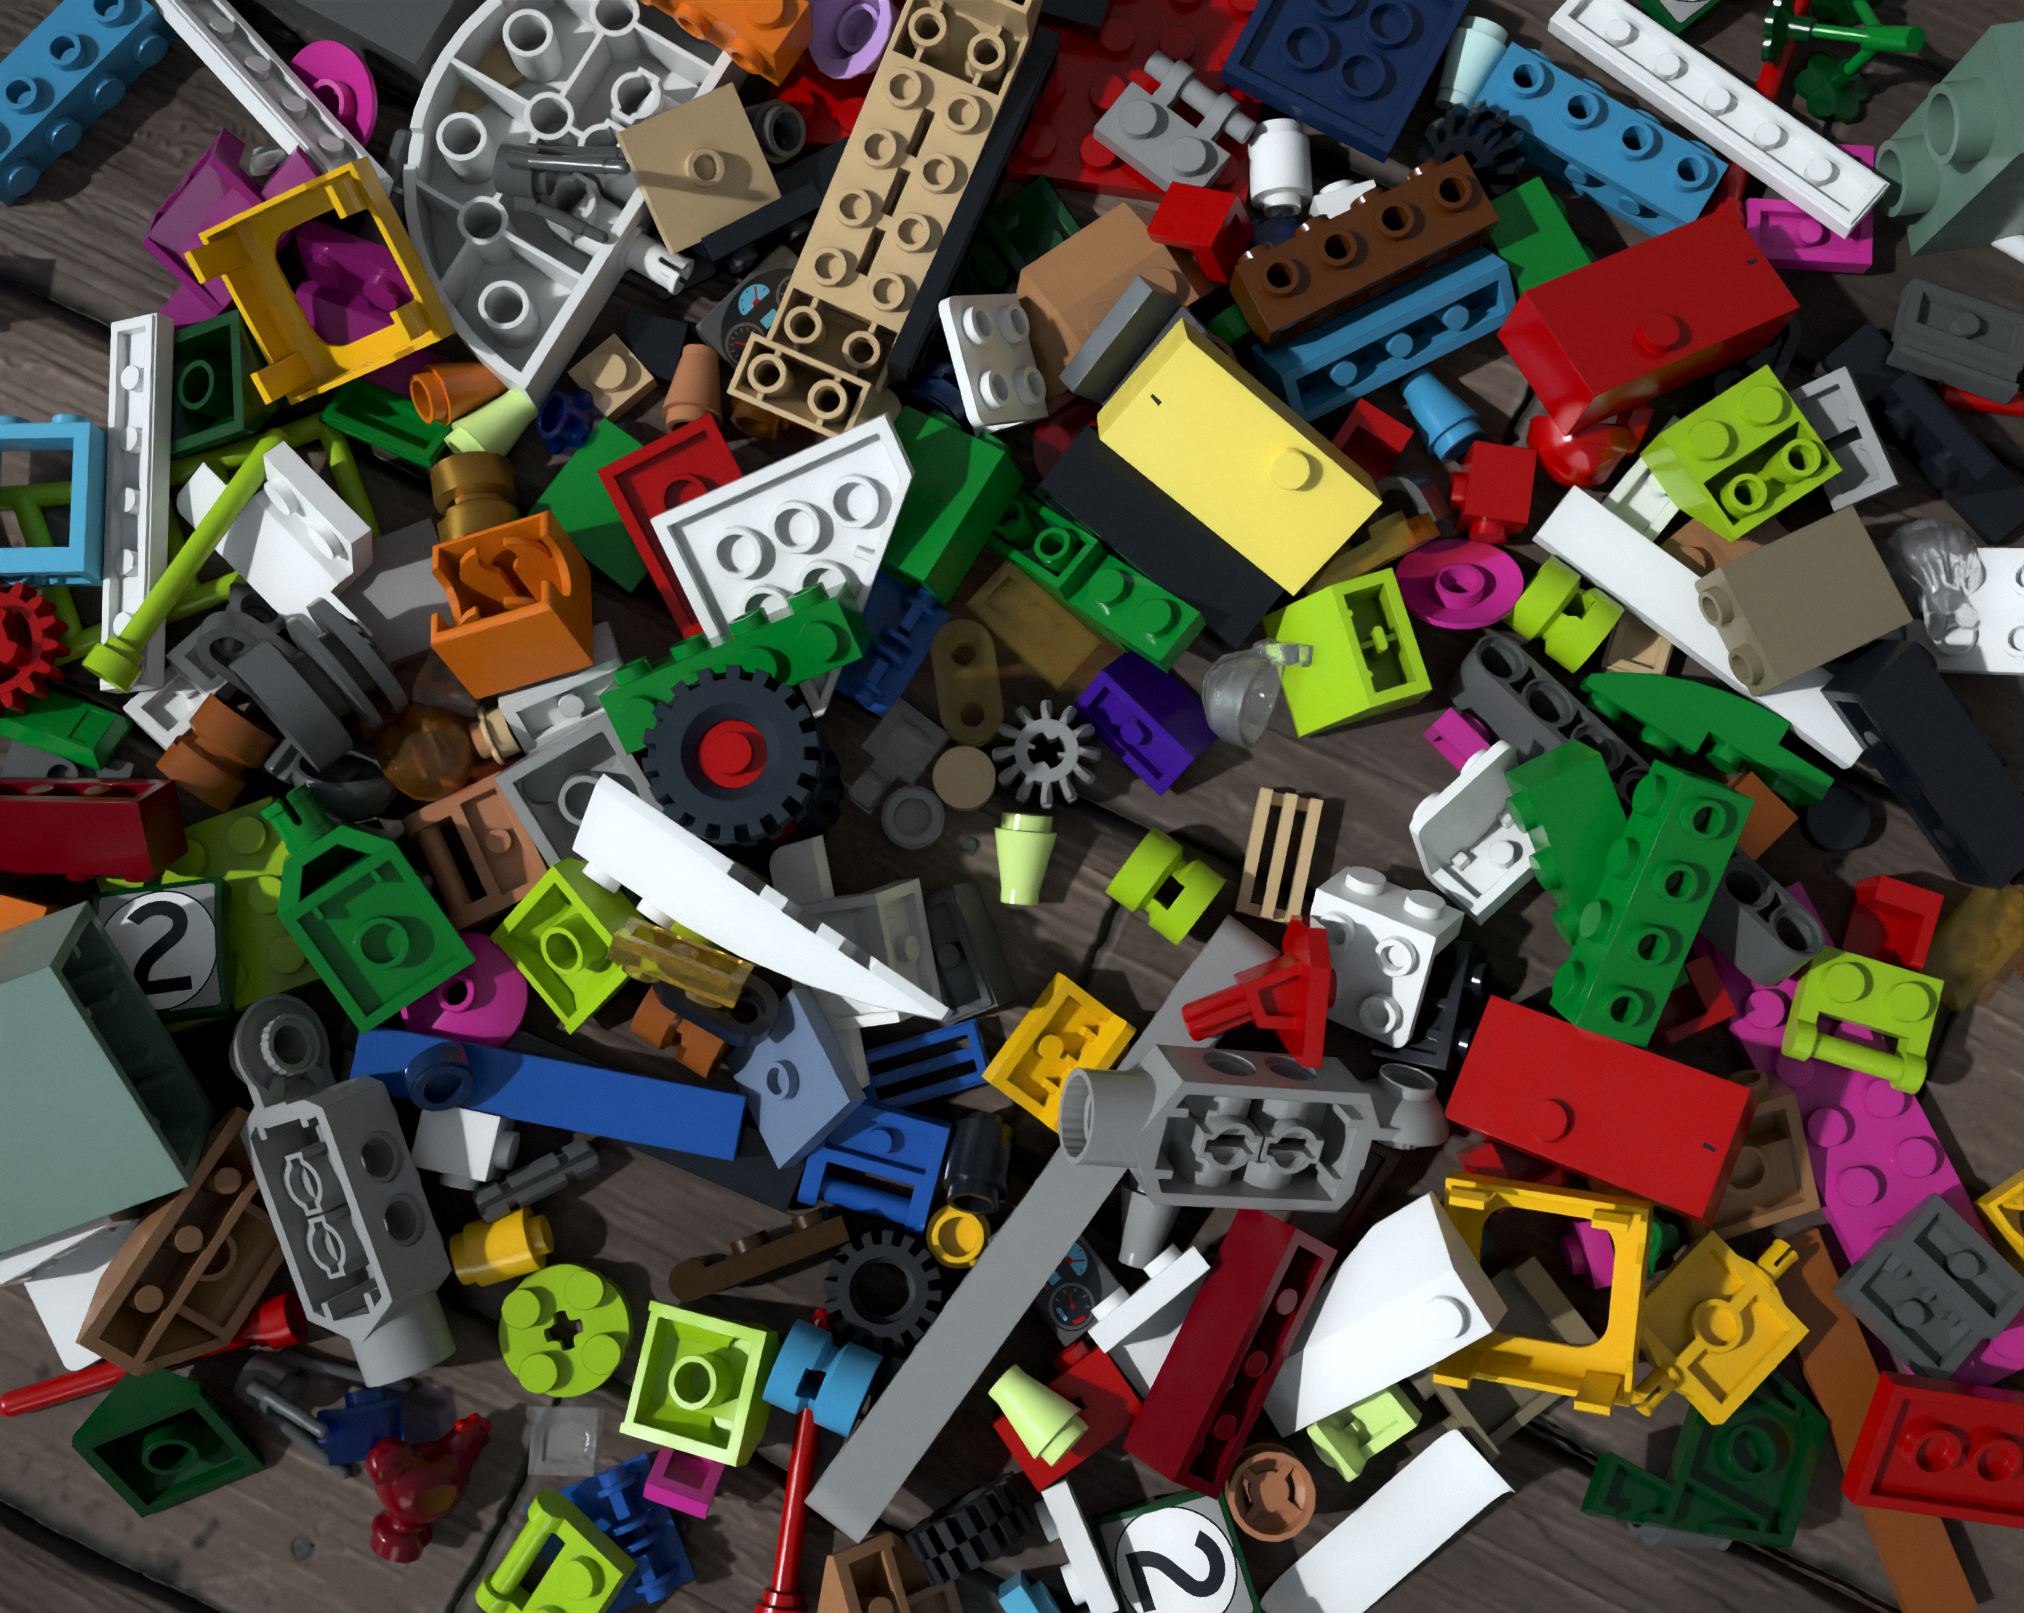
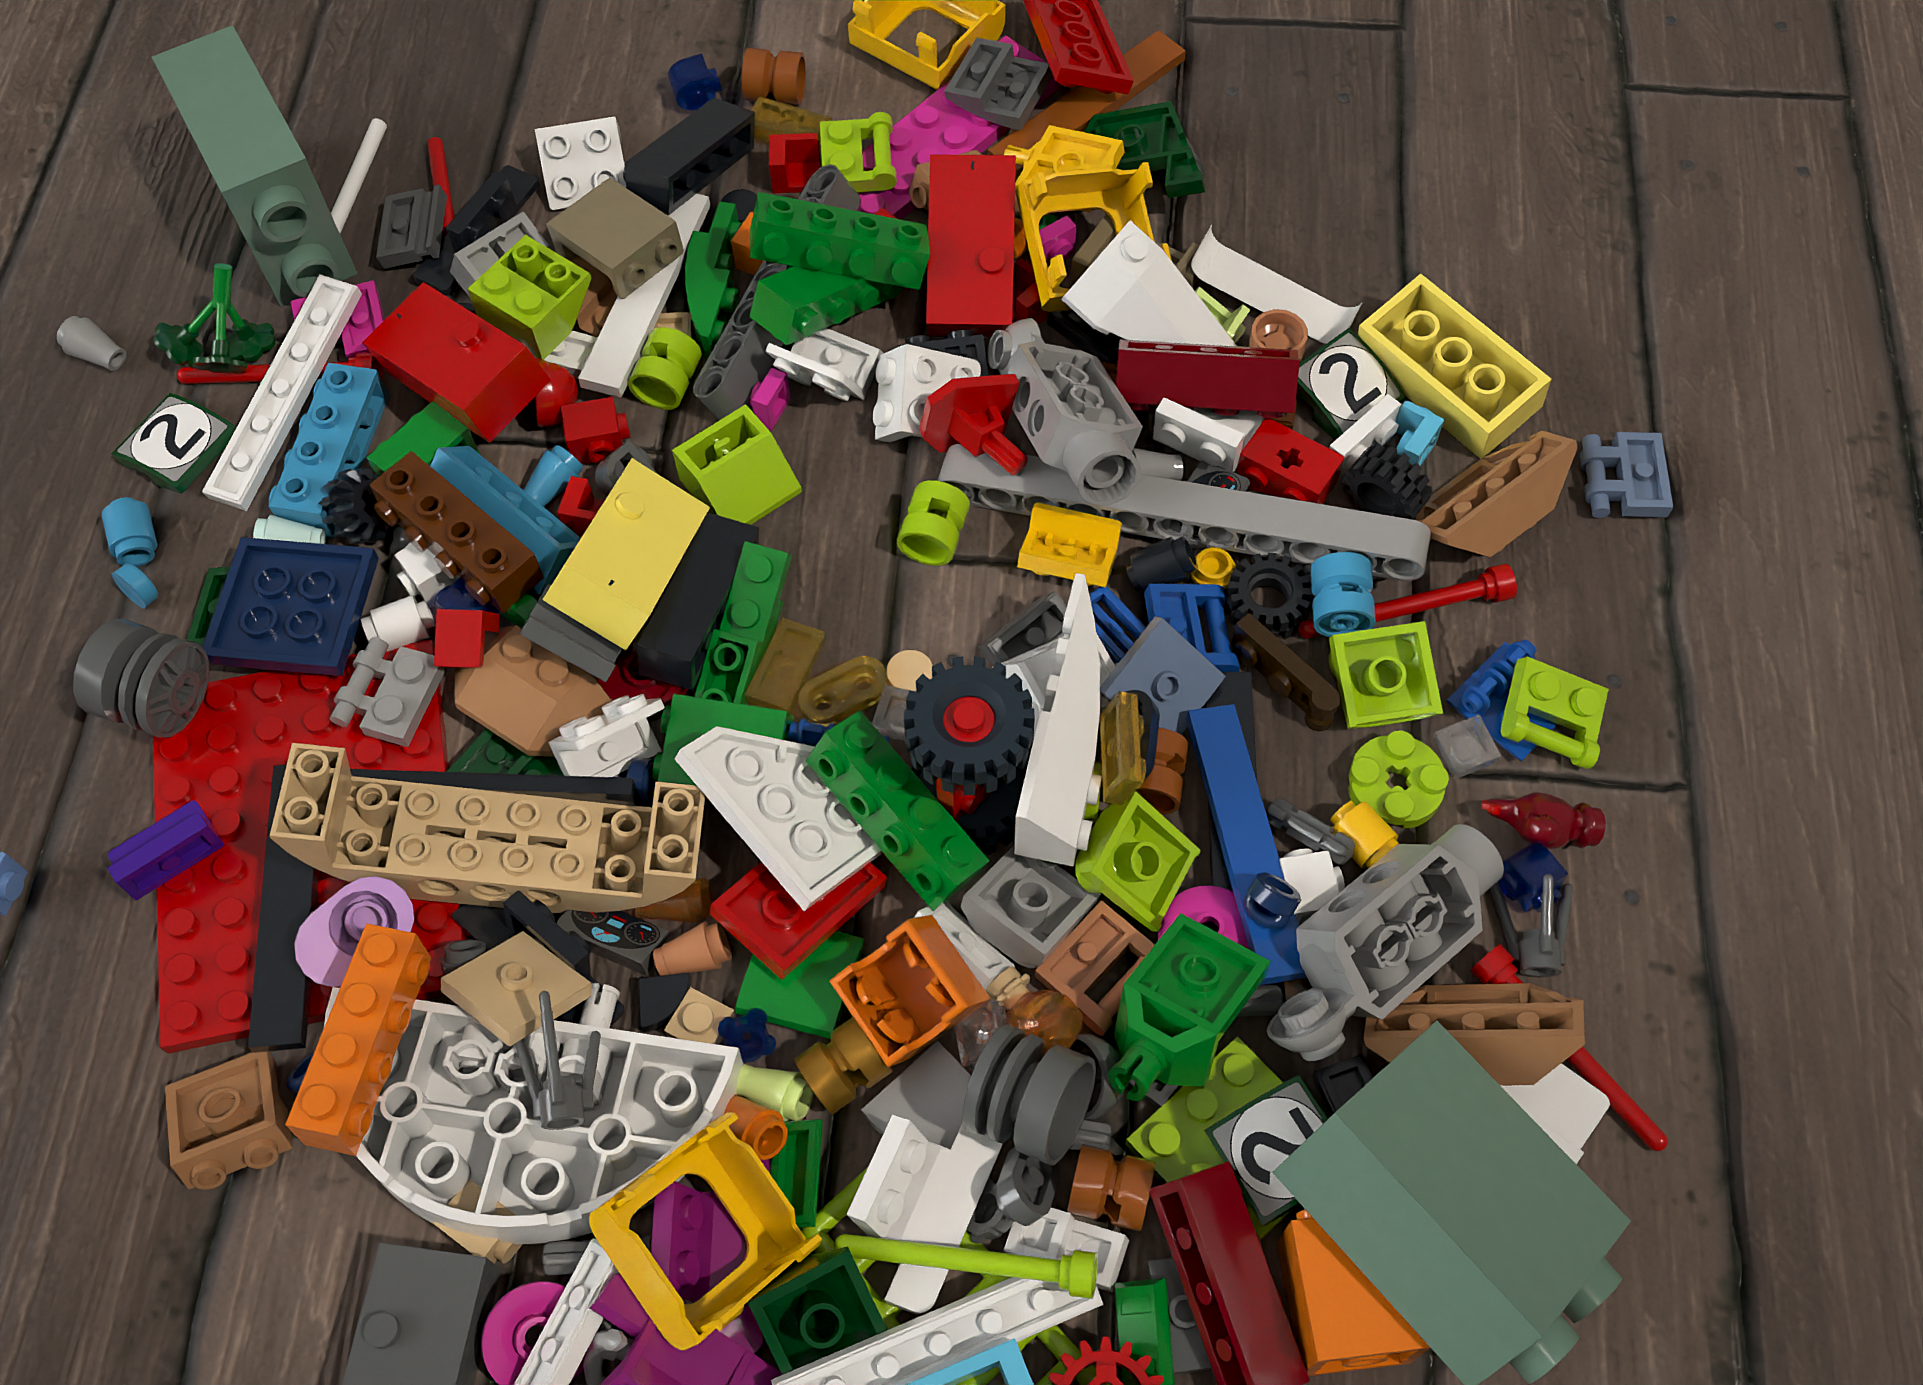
camera: 115 degrees left, 20 degrees down
(163, 1442) = (1617, 1006): dark green slope -> none
(684, 1481) = (1452, 663): dark pink plate -> none
(1023, 855) = (946, 616): yellowish green cone -> none
(1039, 1415) = (1300, 459): yellowish green cone -> none
(1052, 734) = (888, 618): light grey gear -> none
(1146, 719) = (826, 575): dark purple panel -> none
(1244, 688) = (781, 522): clear piece -> none
(1289, 804) = (883, 471): tan tile -> none
(1390, 540) = (656, 455): clear yellow plate -> none
(1459, 583) = (663, 423): dark pink dish -> none
(1935, 572) = (565, 187): clear piece -> none

